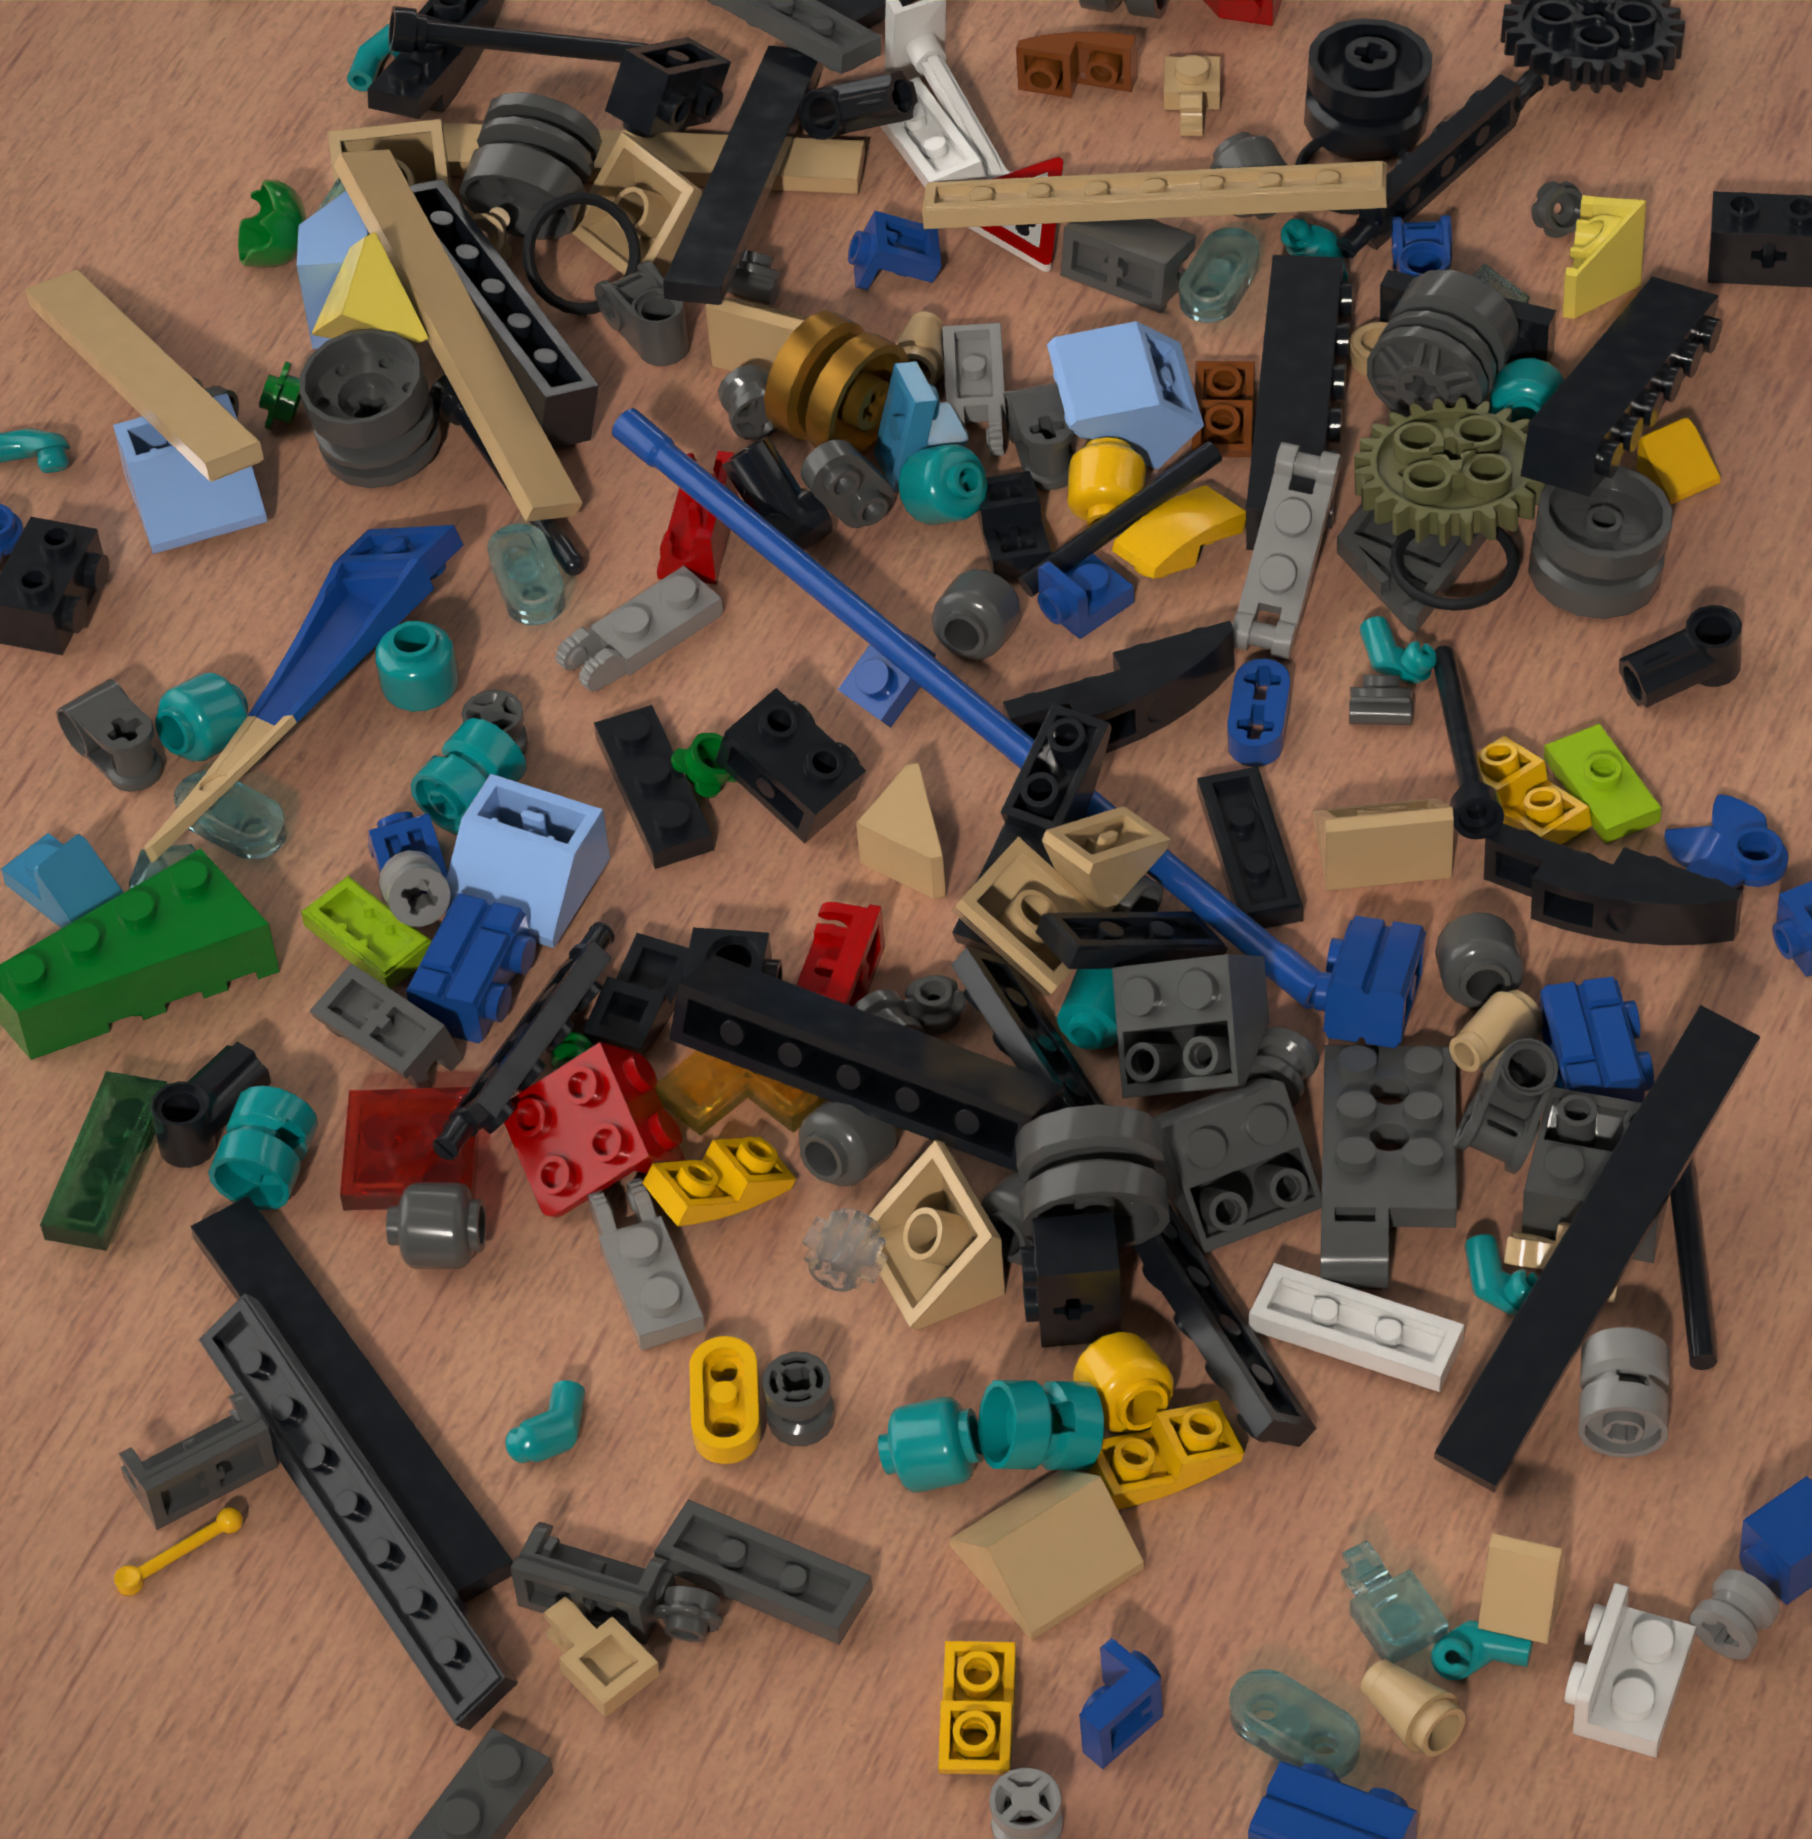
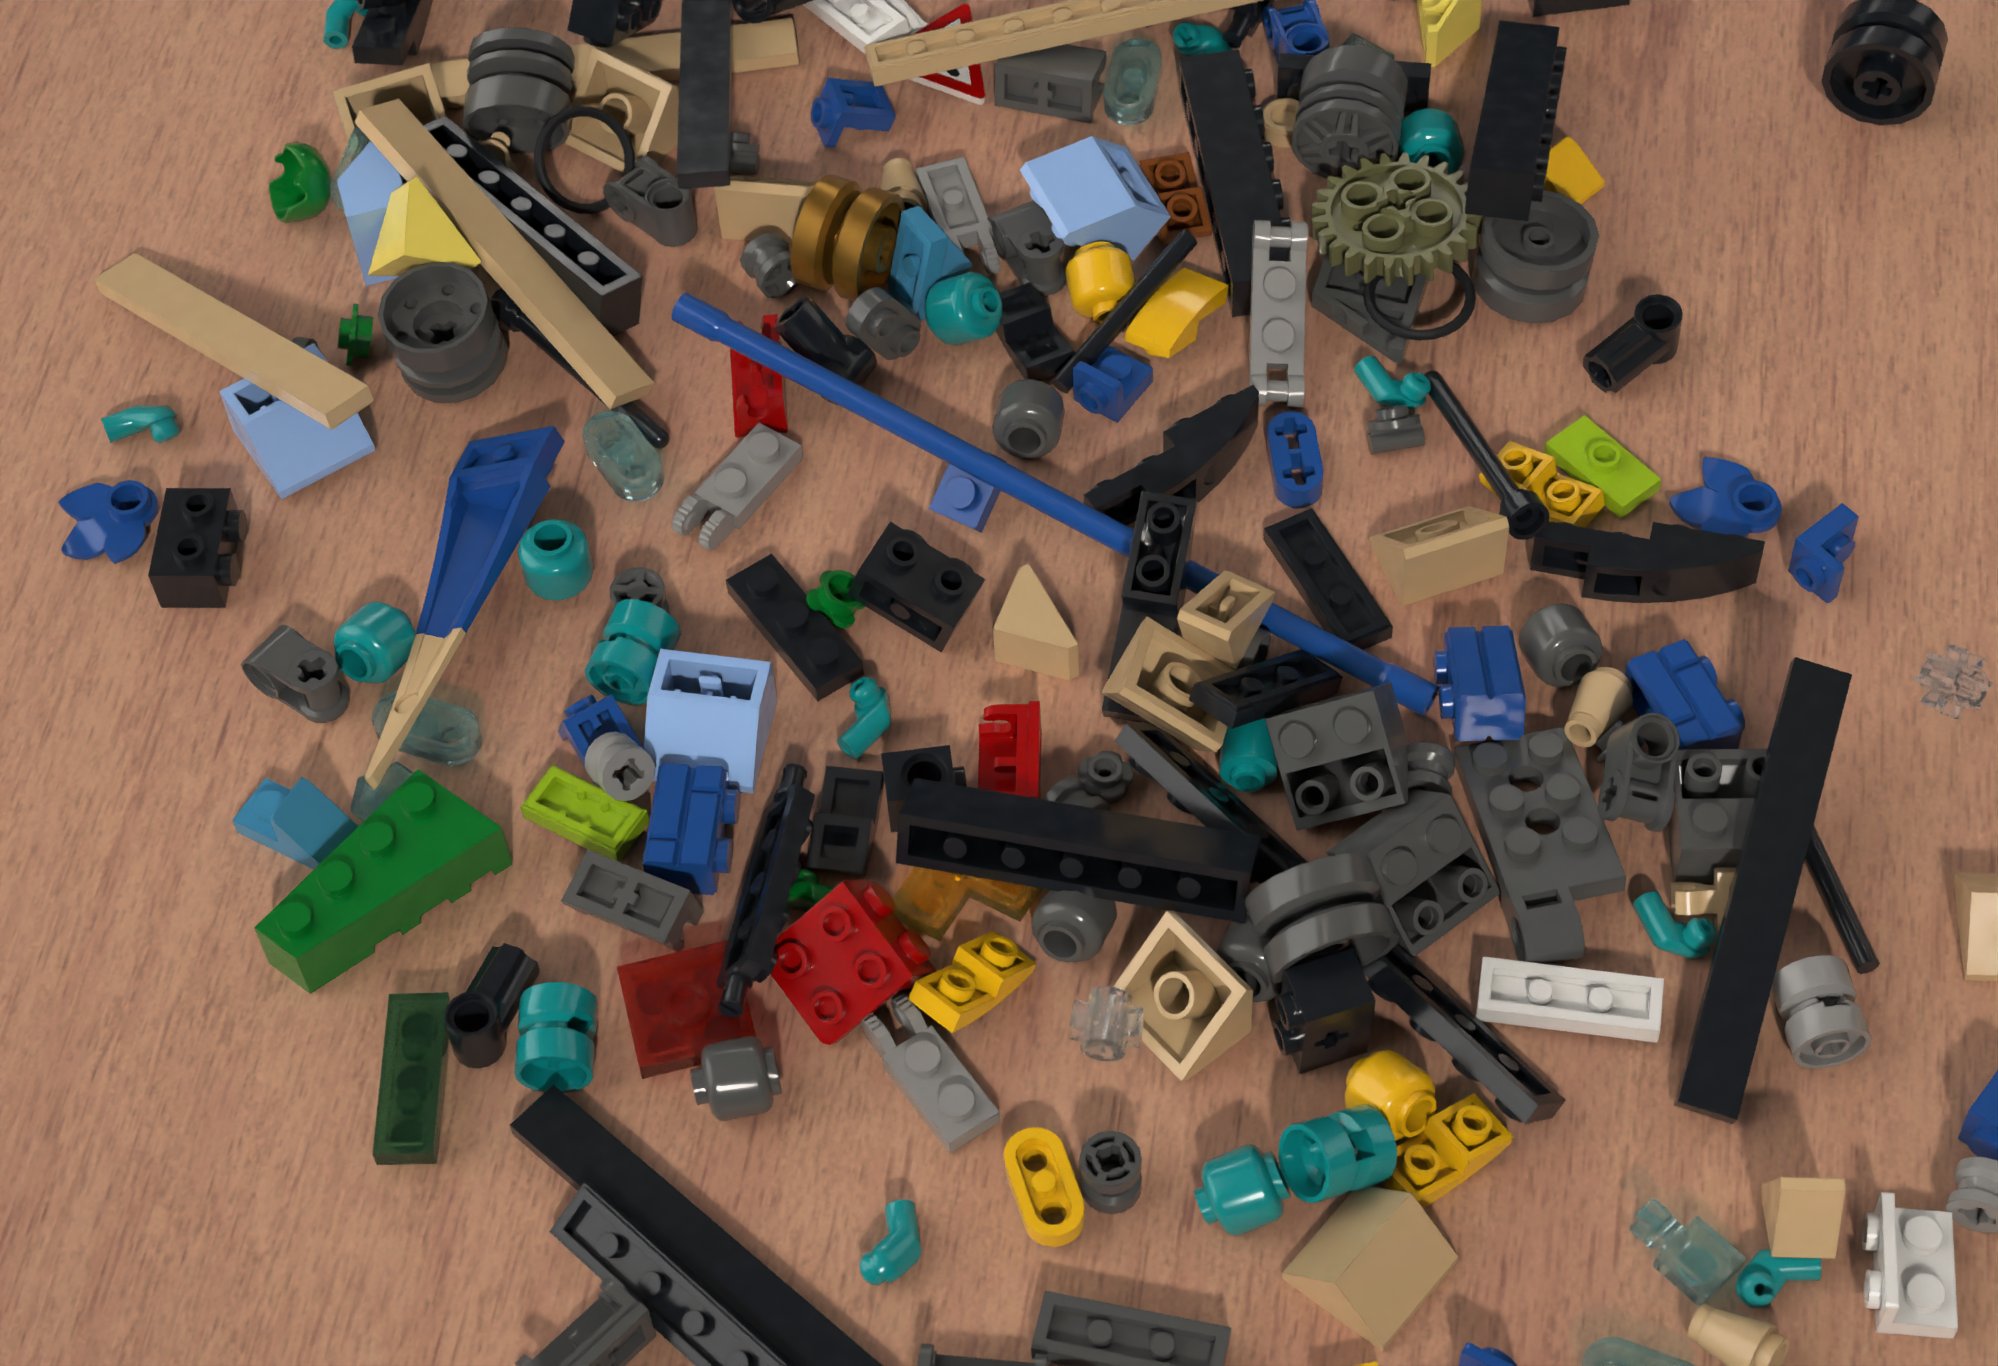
camera: 15 degrees left, 5 degrees up
(704, 893) = (872, 717): none -> teal arm

